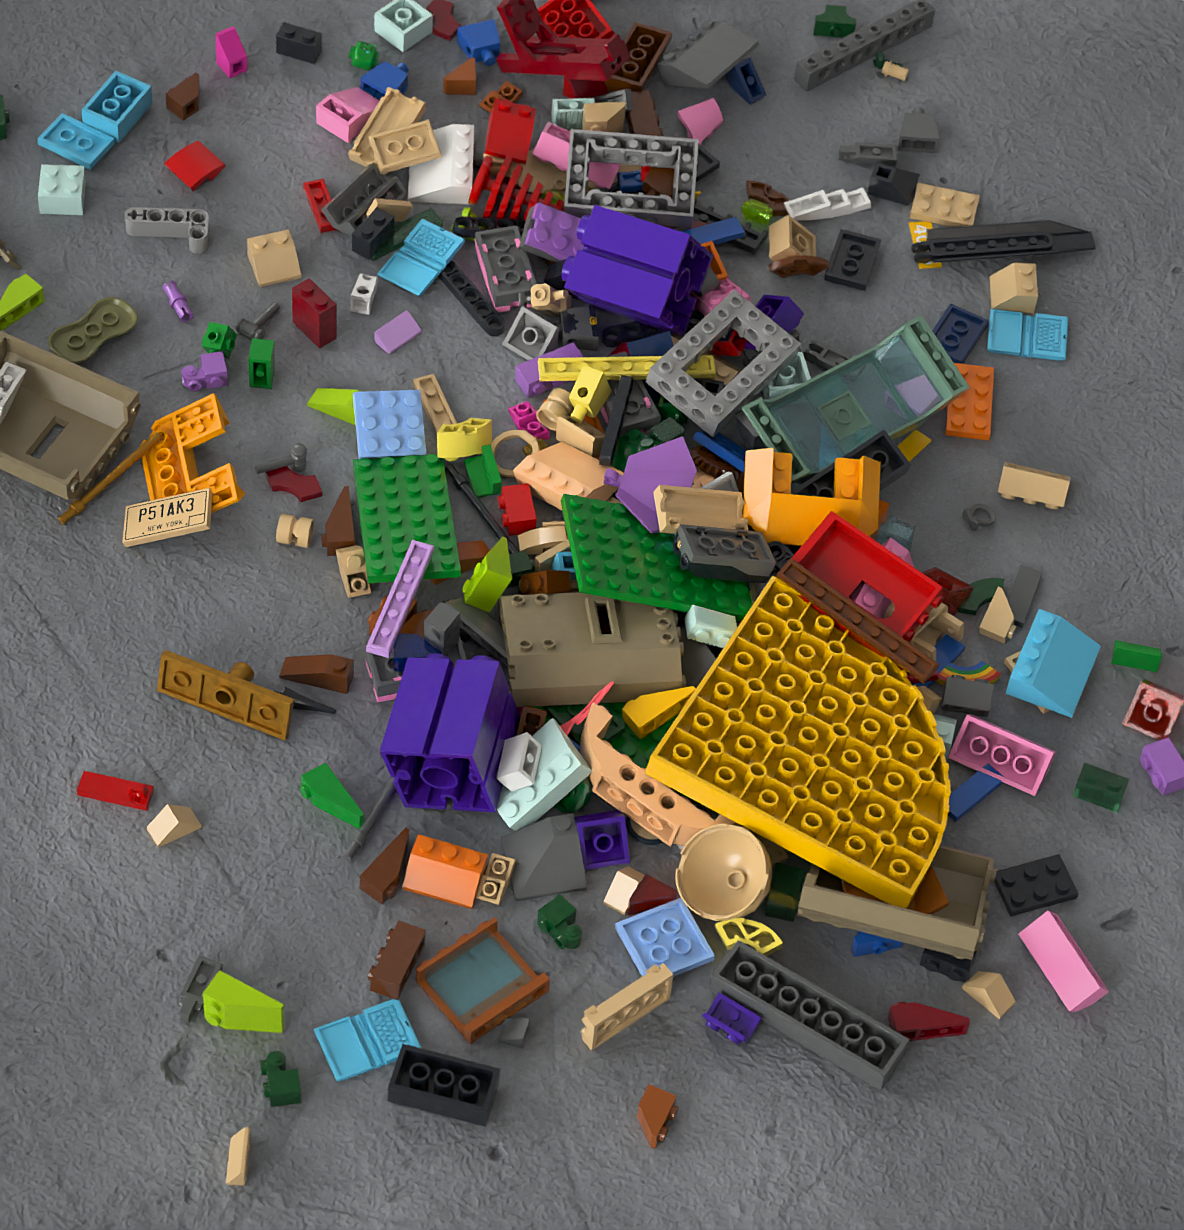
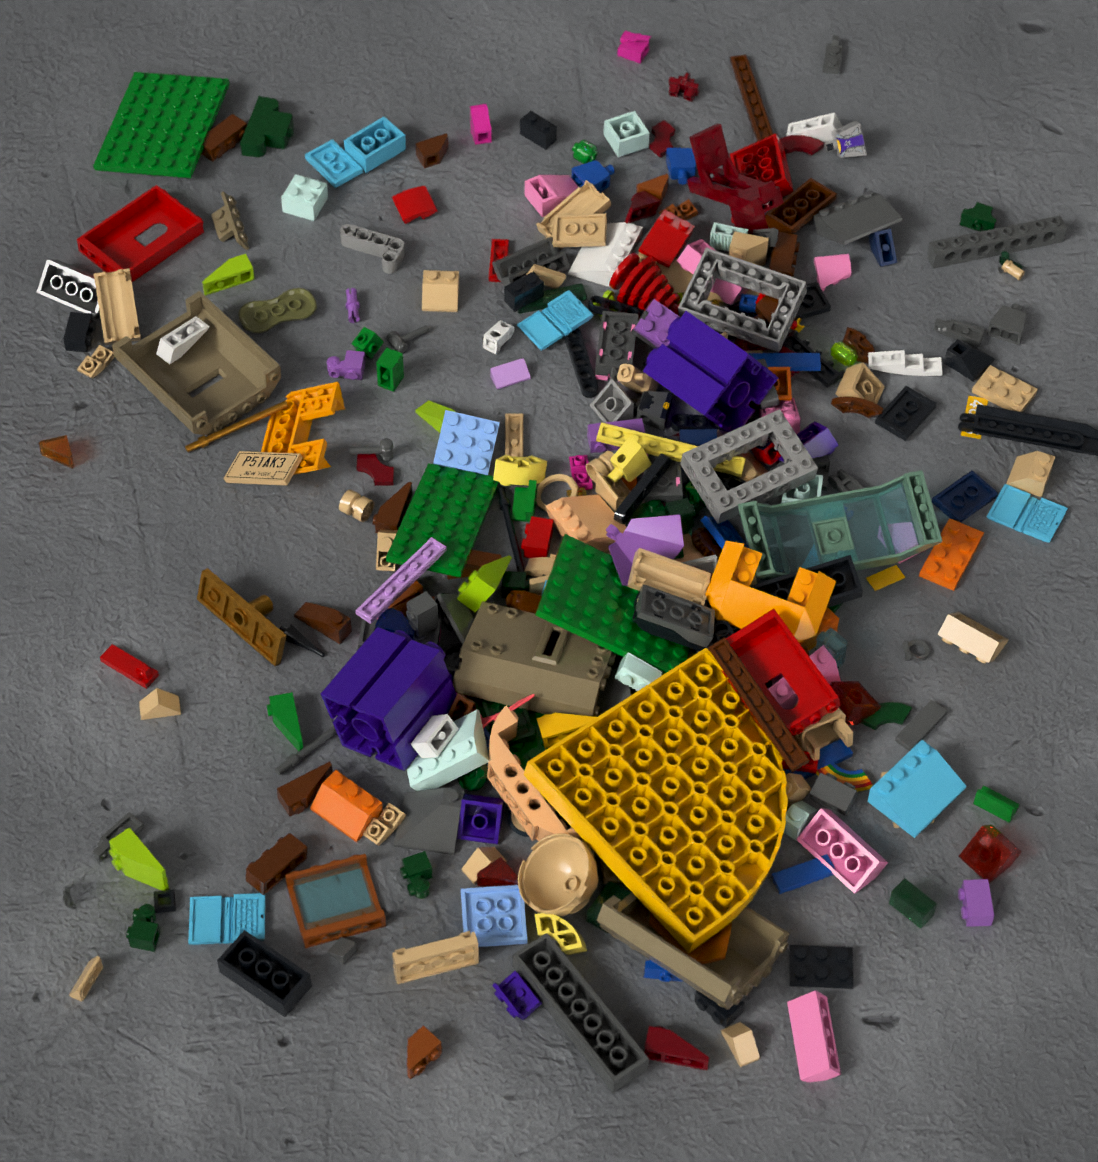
camera: 25 degrees right, 0 degrees up
(287, 1042) = (164, 901): none -> black tile
(314, 313) = (448, 341): dark red brick -> none
(459, 102) = (642, 206): none -> dark red slope
(999, 619) = (889, 737): tan slope -> none

